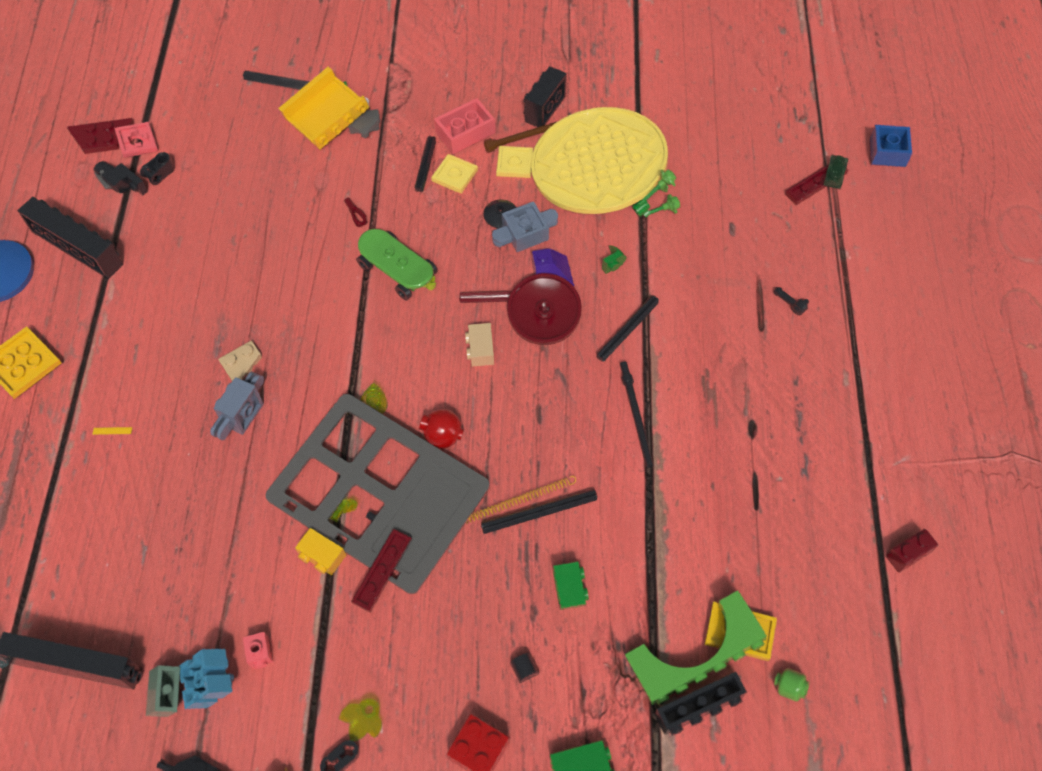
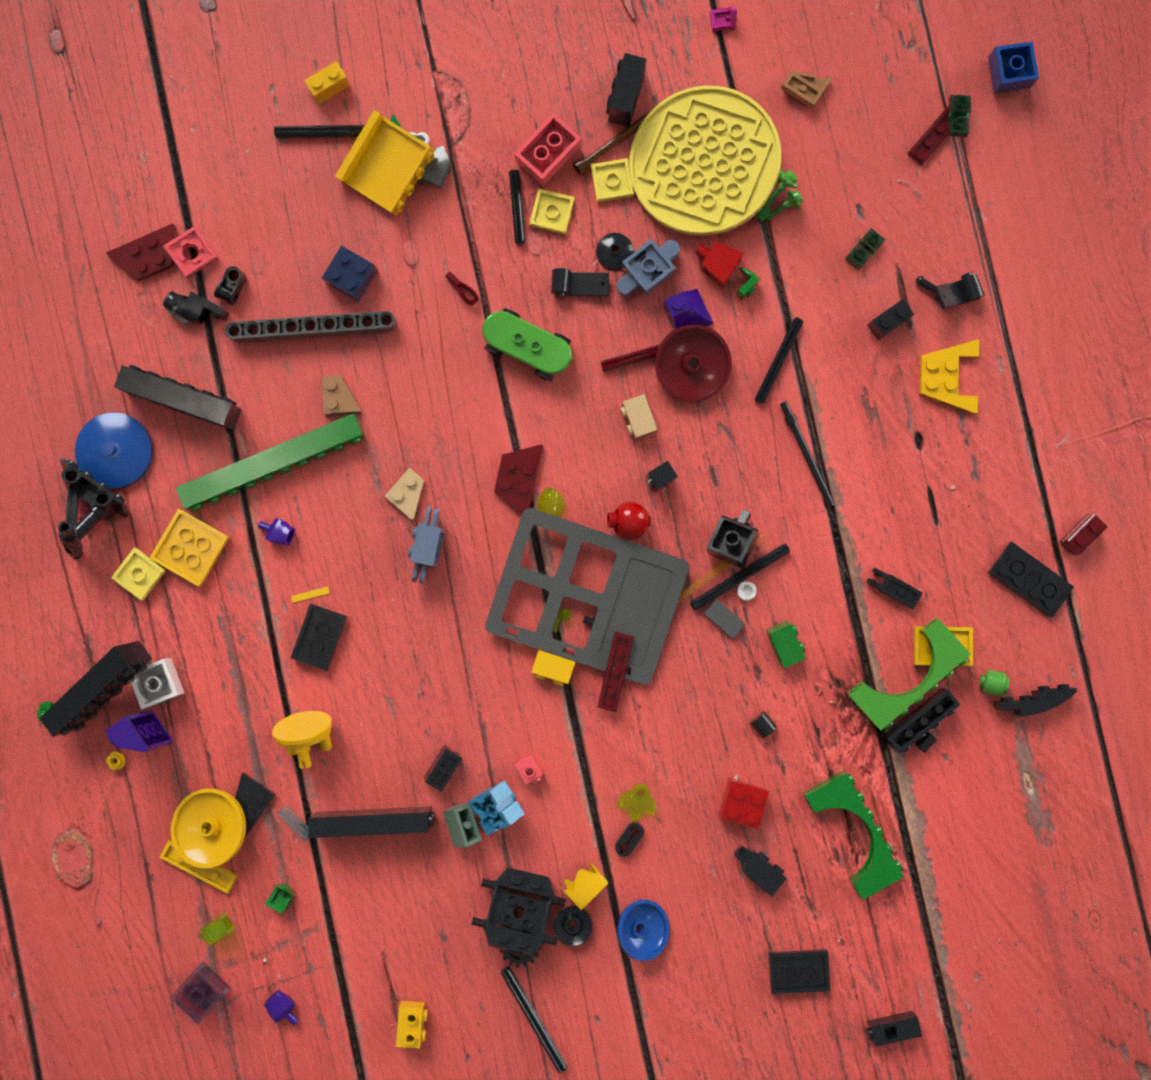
camera: 15 degrees left, 25 degrees up
(37, 547) = (302, 731): none -> yellow piece
(101, 468) = (319, 637): none -> black plate
(107, 368) = (278, 532): none -> dark purple piece
(126, 308) = (270, 462): none -> green brick
(167, 625) = (442, 768): none -> black hinge
(211, 271) = (337, 396): none -> medium nougat wing
(212, 212) = (302, 326): none -> dark grey beam
(261, 180) = (349, 273): none -> dark blue brick
(300, 49) = (327, 82): none -> yellow brick
(351, 370) = (518, 476): none -> dark red wing
(448, 227) = (579, 283): none -> black door
(484, 396) = (661, 477): none -> black brick
(512, 548) = (724, 618): none -> dark grey tile
(540, 469) = (733, 540): none -> black hinge
(543, 527) = (746, 591): none -> white tile
(592, 237) = (719, 262): none -> red torso
(642, 71) = (723, 18): none -> dark pink tile
(700, 560) = (896, 589): none -> black hinge
(702, 128) = (805, 87): none -> medium nougat wing
(702, 732) = (926, 742): none -> black hinge
(730, 257) = (865, 249): none -> slope
(742, 314) = (890, 319): none -> black brick
(784, 374) = (941, 376): none -> yellow wing
(820, 306) = (959, 292): none -> black door
(843, 717) = (1039, 702): none -> black slope
(849, 586) = (1030, 579): none -> black piece

